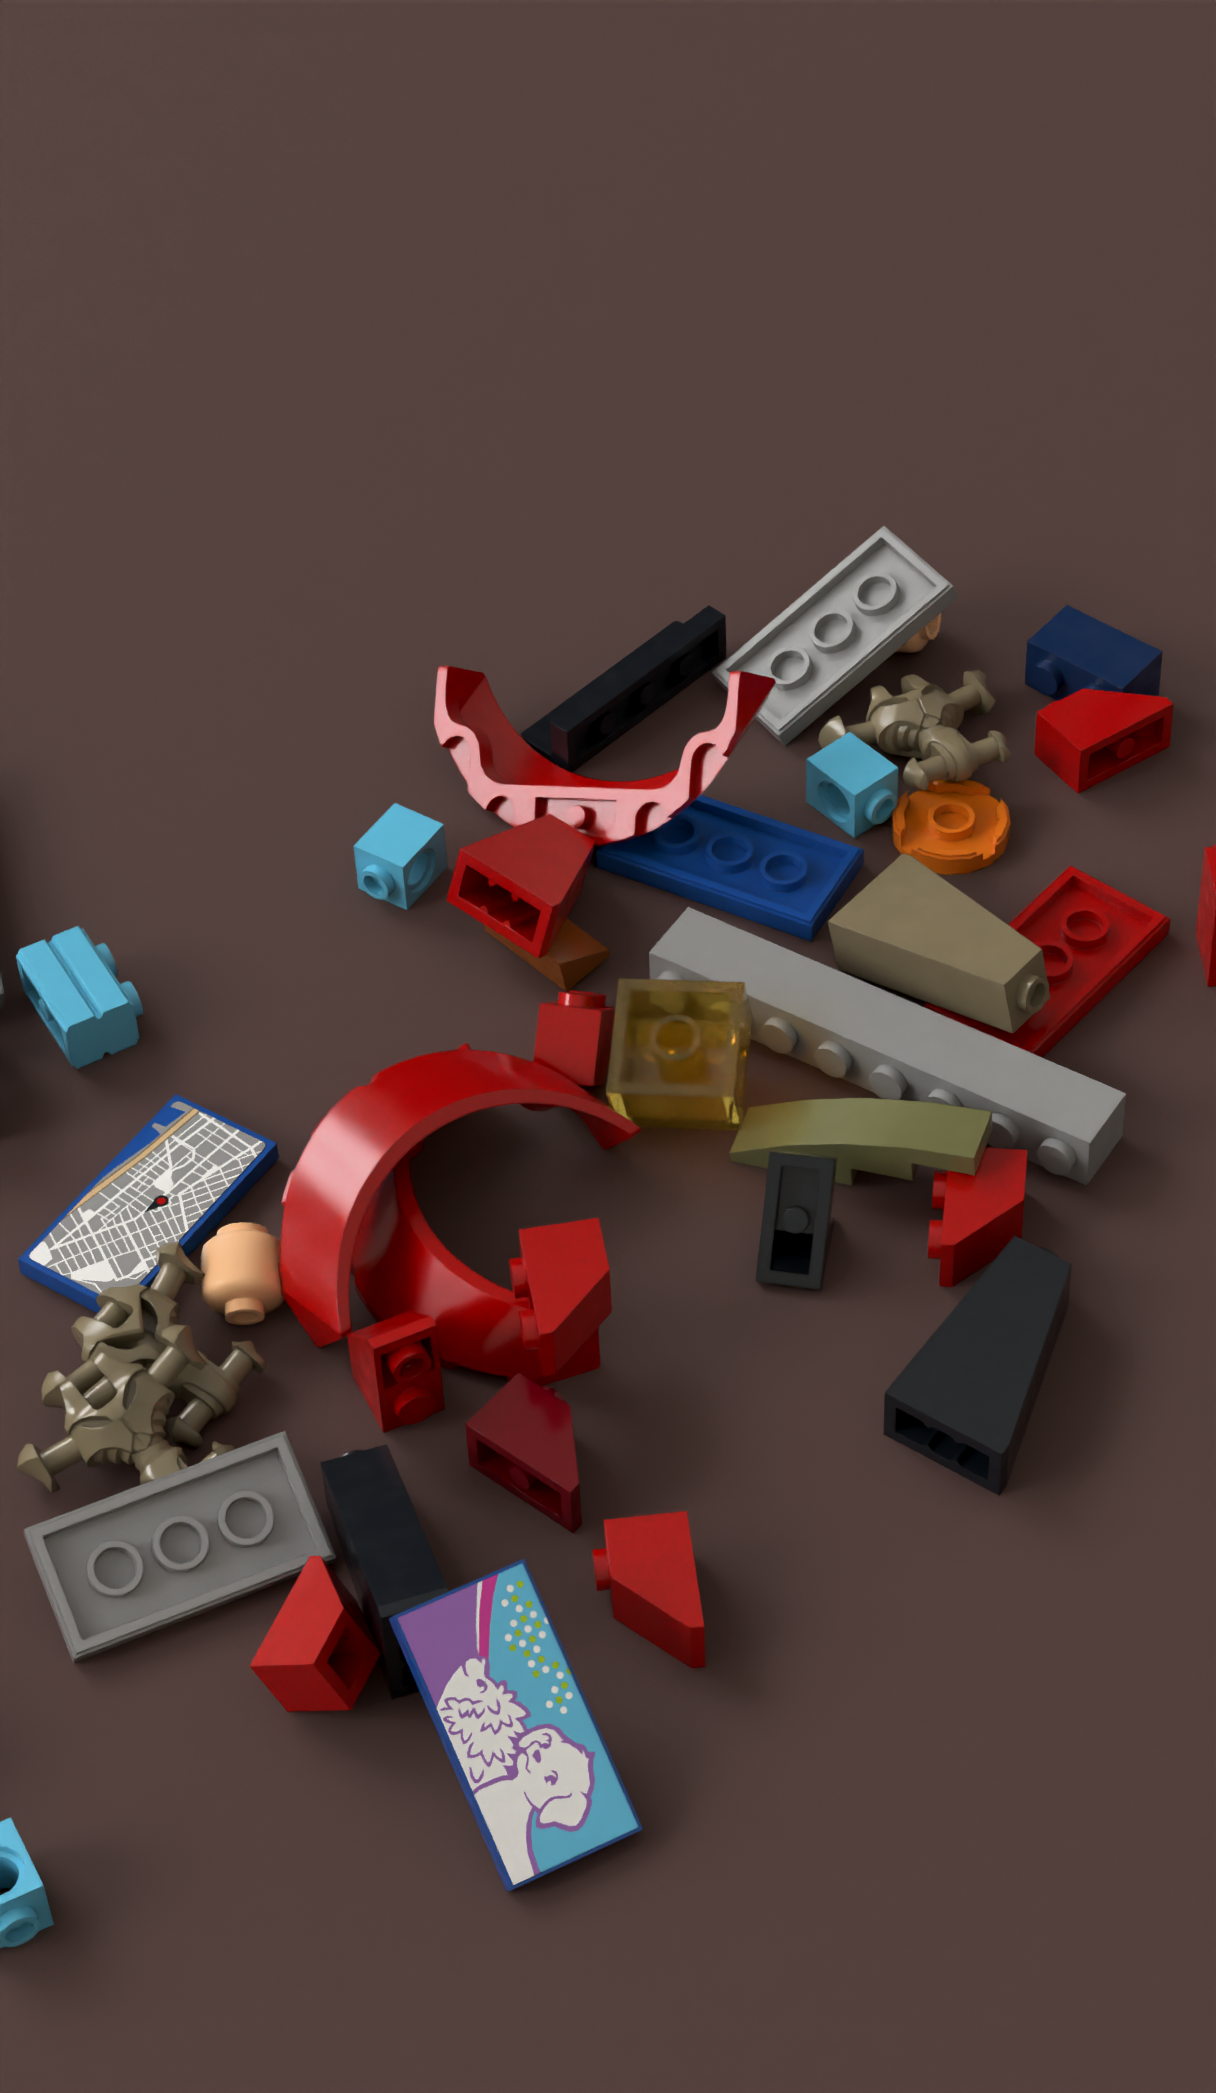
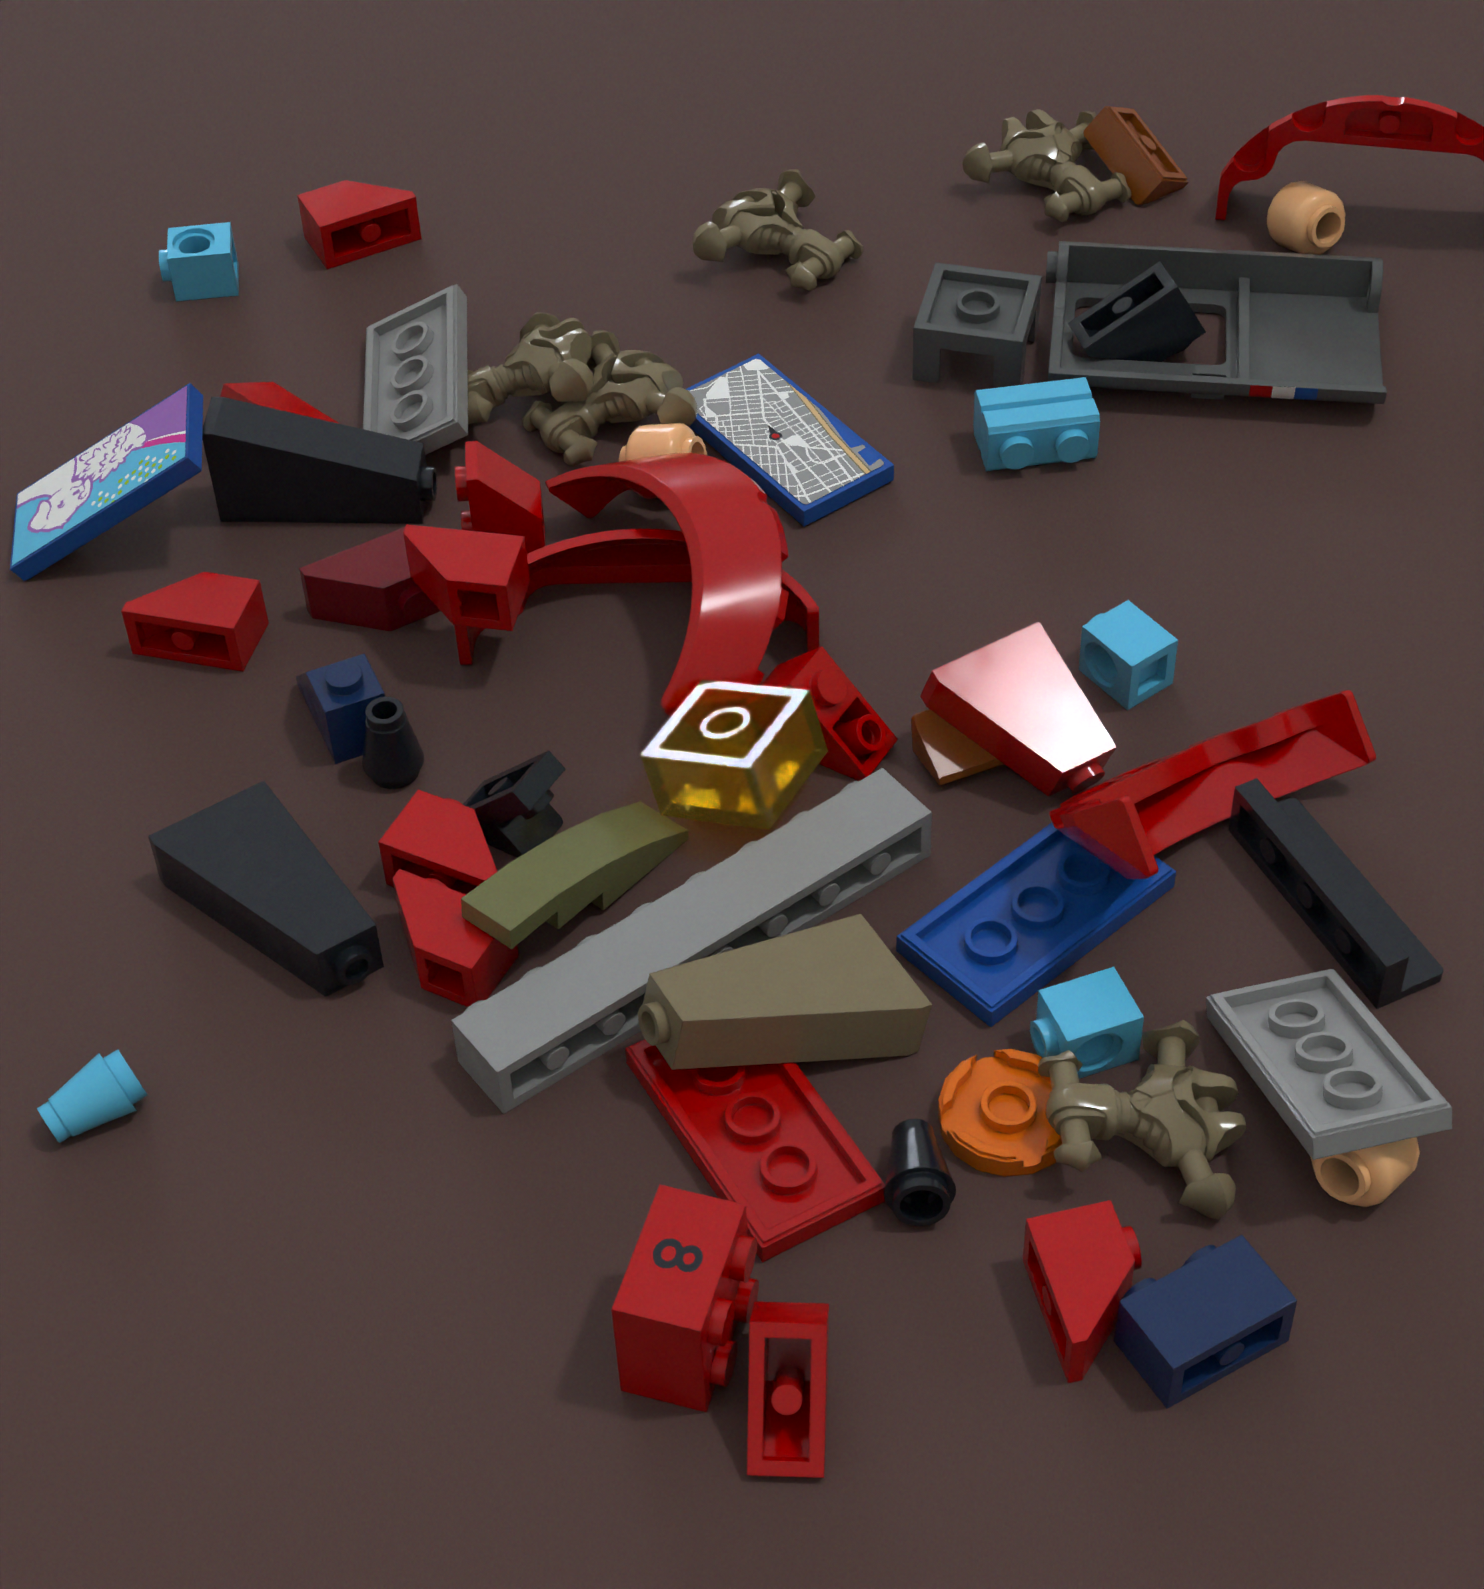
camera: 110 degrees right, 0 degrees up
(714, 1412) = (338, 703): none -> dark blue slope
(767, 1341) = (390, 745): none -> black cone
(879, 1251) = (439, 842): none -> red slope
(1049, 848) = (917, 1176): none -> black cone

